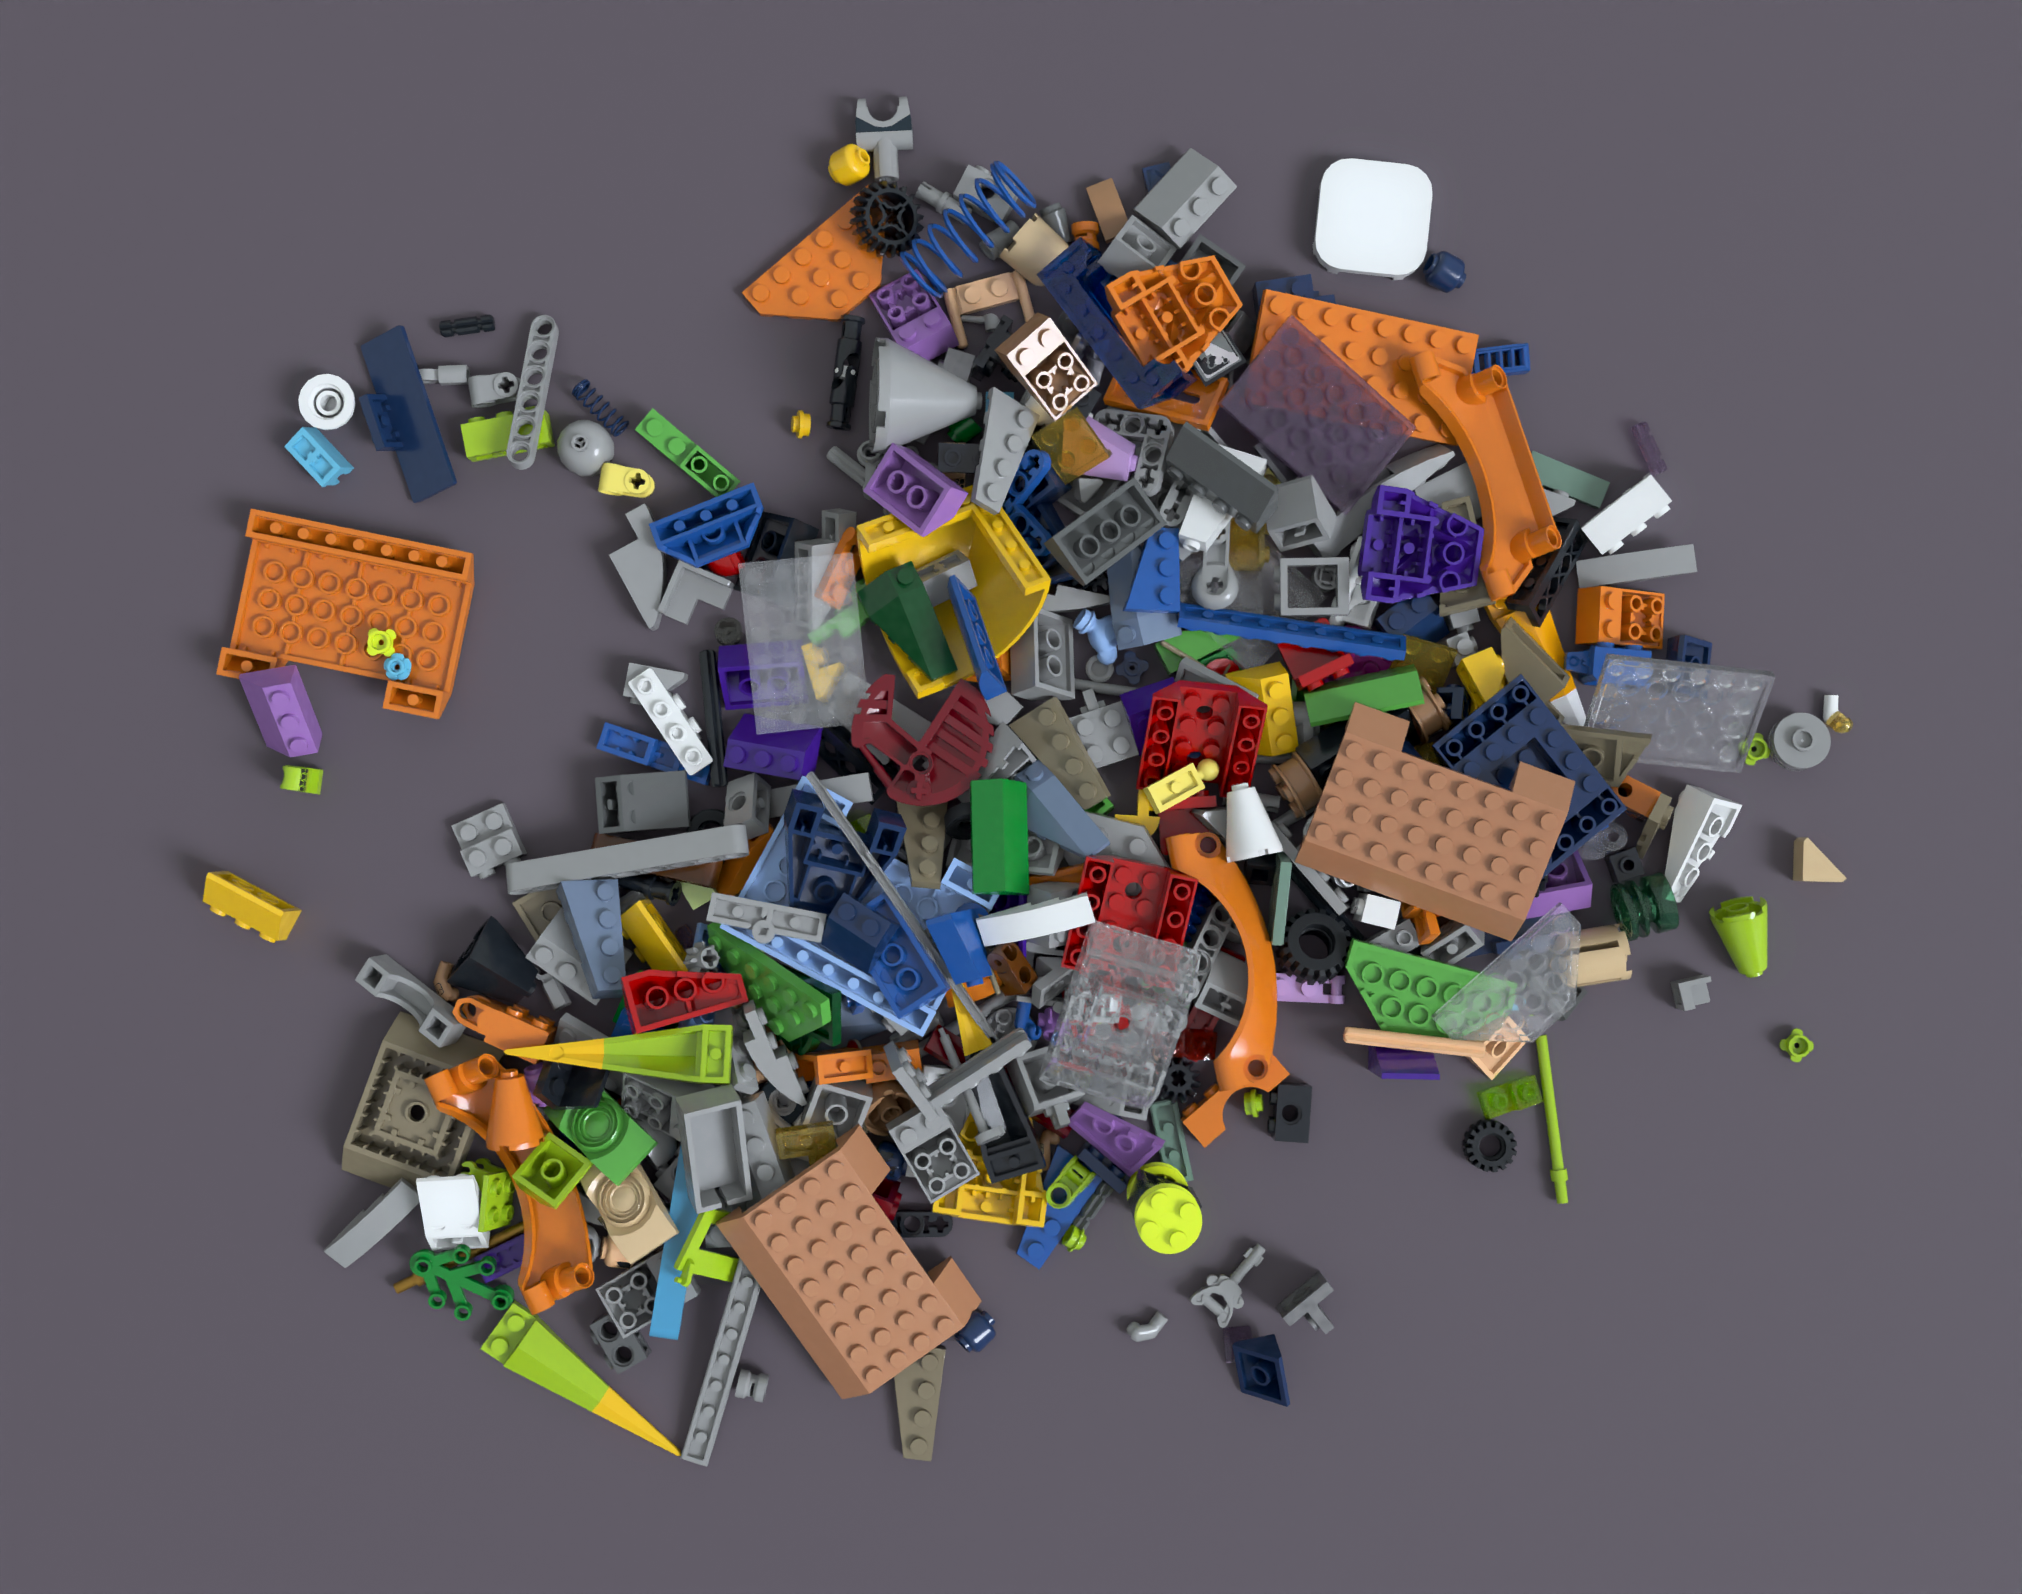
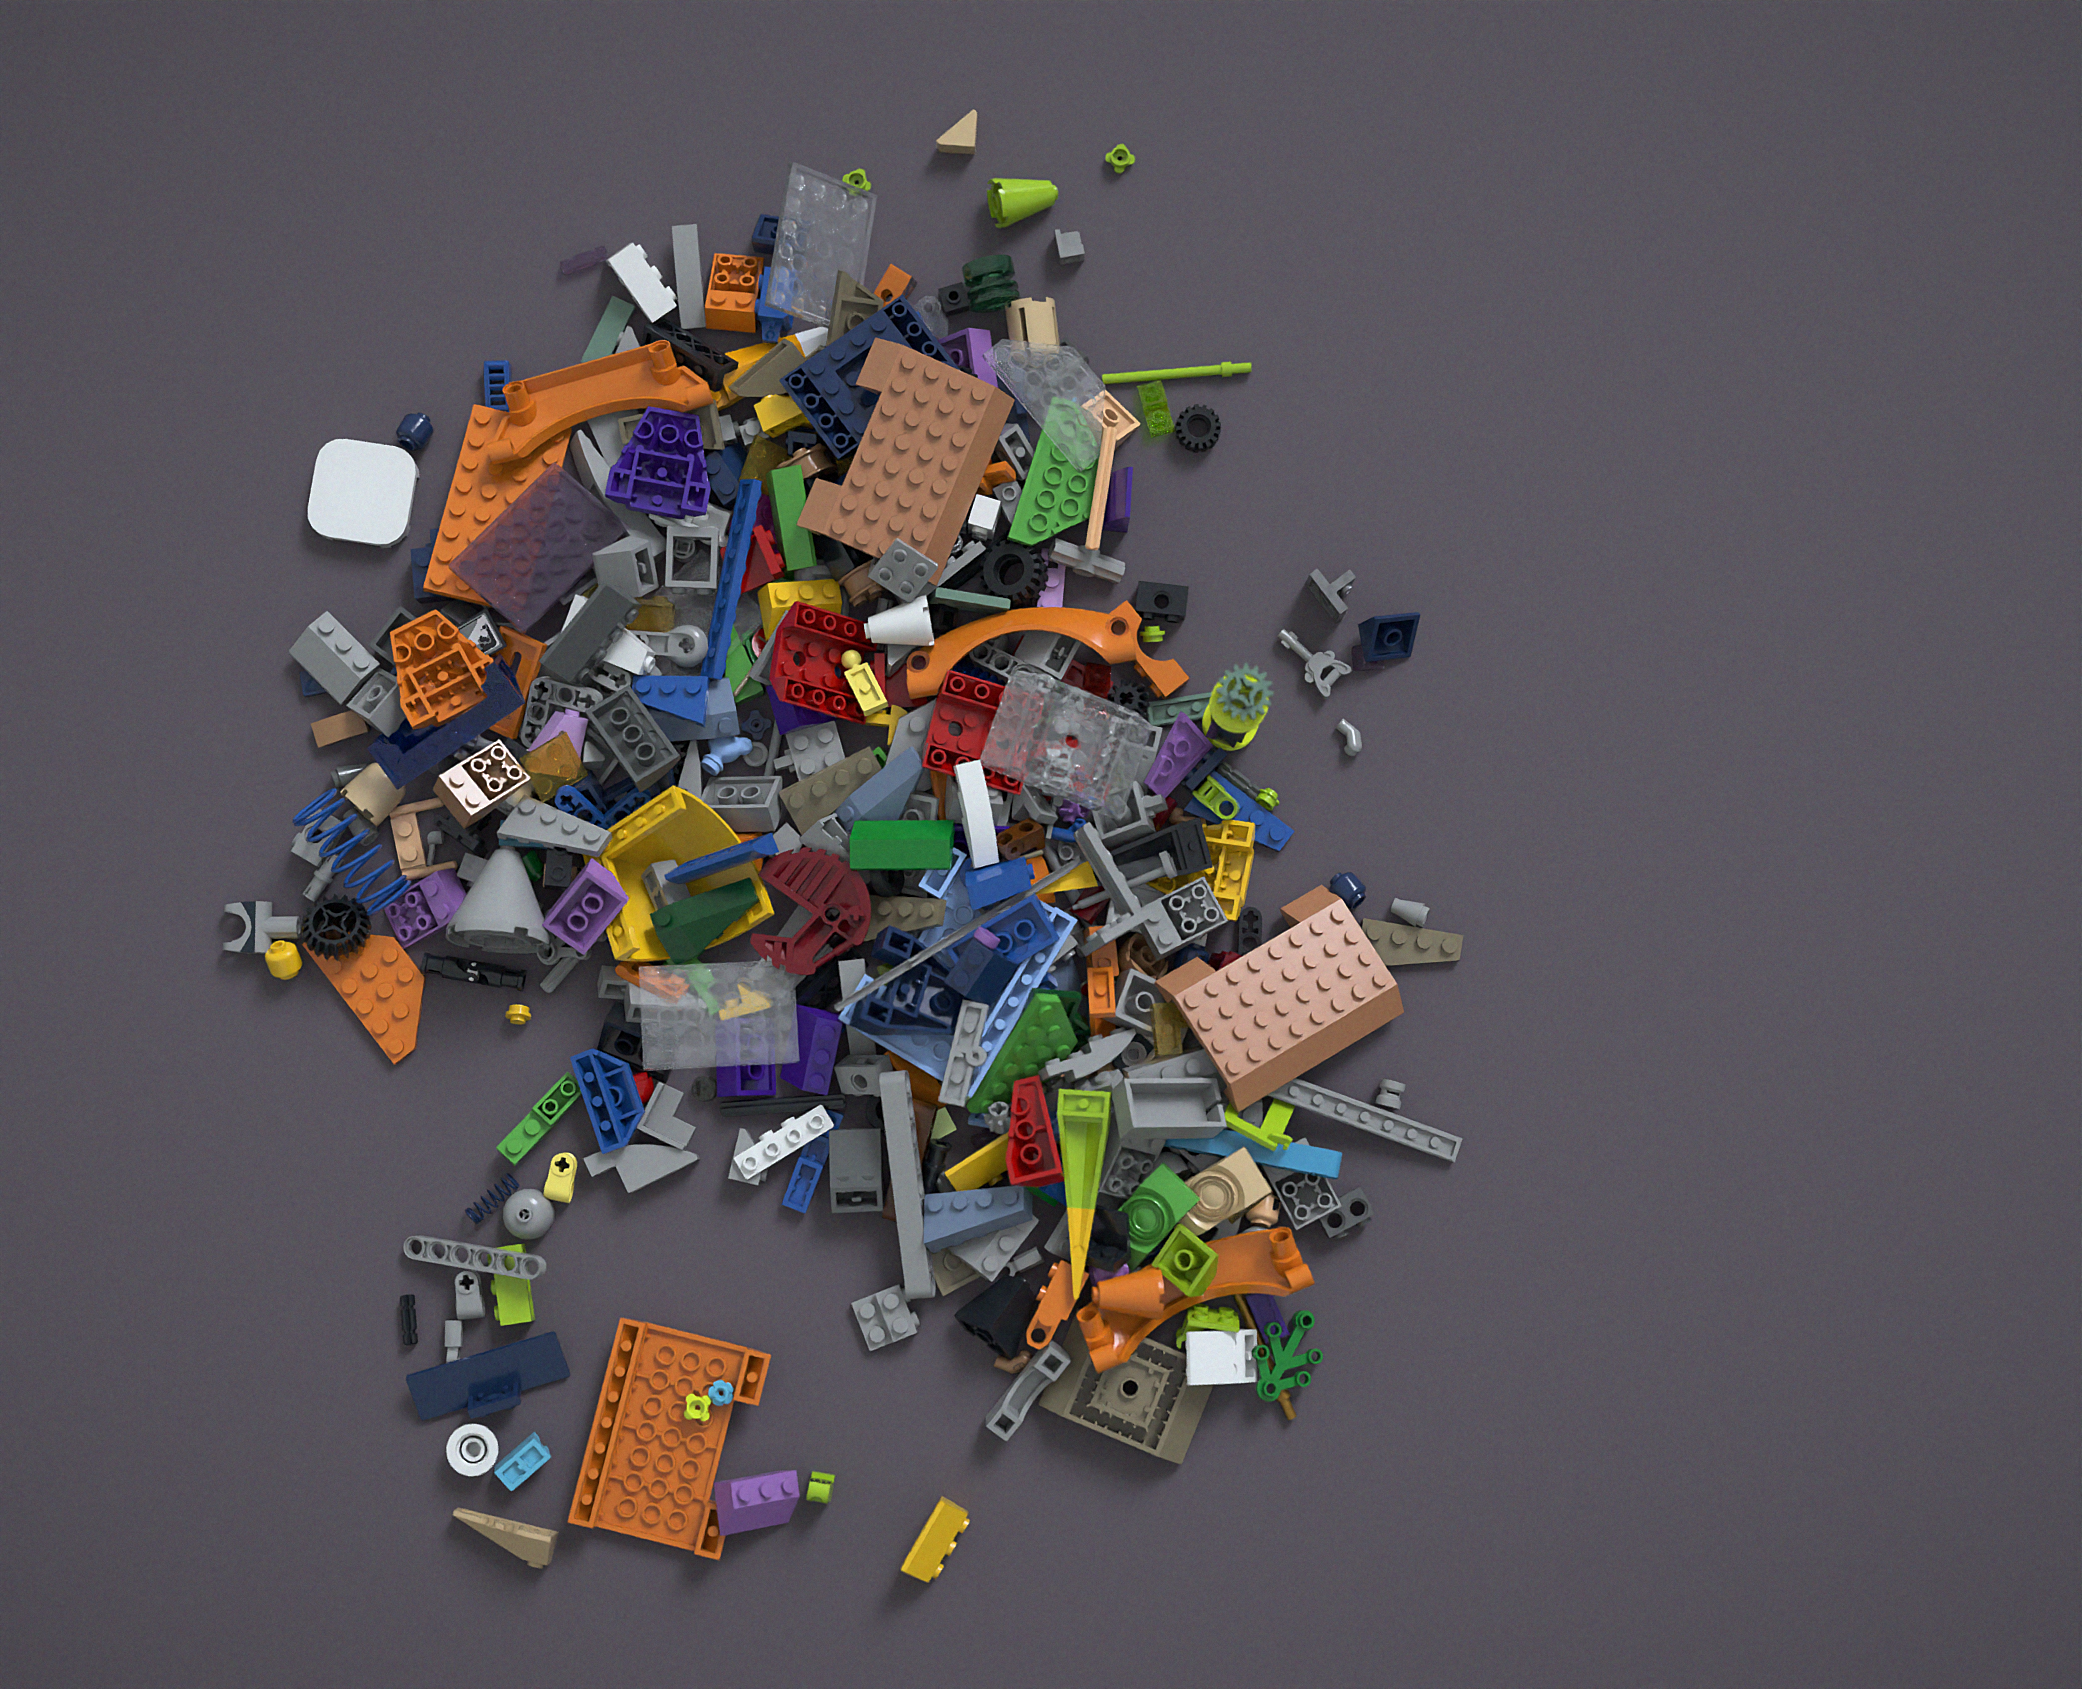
camera: 90 degrees left, 5 degrees down
(237, 459) = (521, 1539): none -> tan wedge
(373, 1223) = (1231, 1434): light grey slope -> none
(539, 1354) = (1354, 1291): lime plate -> none
(895, 937) = (986, 938): none -> medium lavender tile
(954, 1403) = (1410, 911): none -> light grey cone
(1087, 230) = (358, 750): orange wheel -> none
(1190, 1223) = (1233, 696): none -> sand green gear
(1308, 824) = (902, 570): none -> light grey bracket
(1331, 1026) = (1086, 561): none -> light grey piece
(1657, 819) = (915, 269): dark tan wing -> none
(1695, 829) = (924, 235): white wedge -> none
(1799, 742) = (852, 143): light grey piece -> none
(1834, 717) = (832, 112): arm -> none

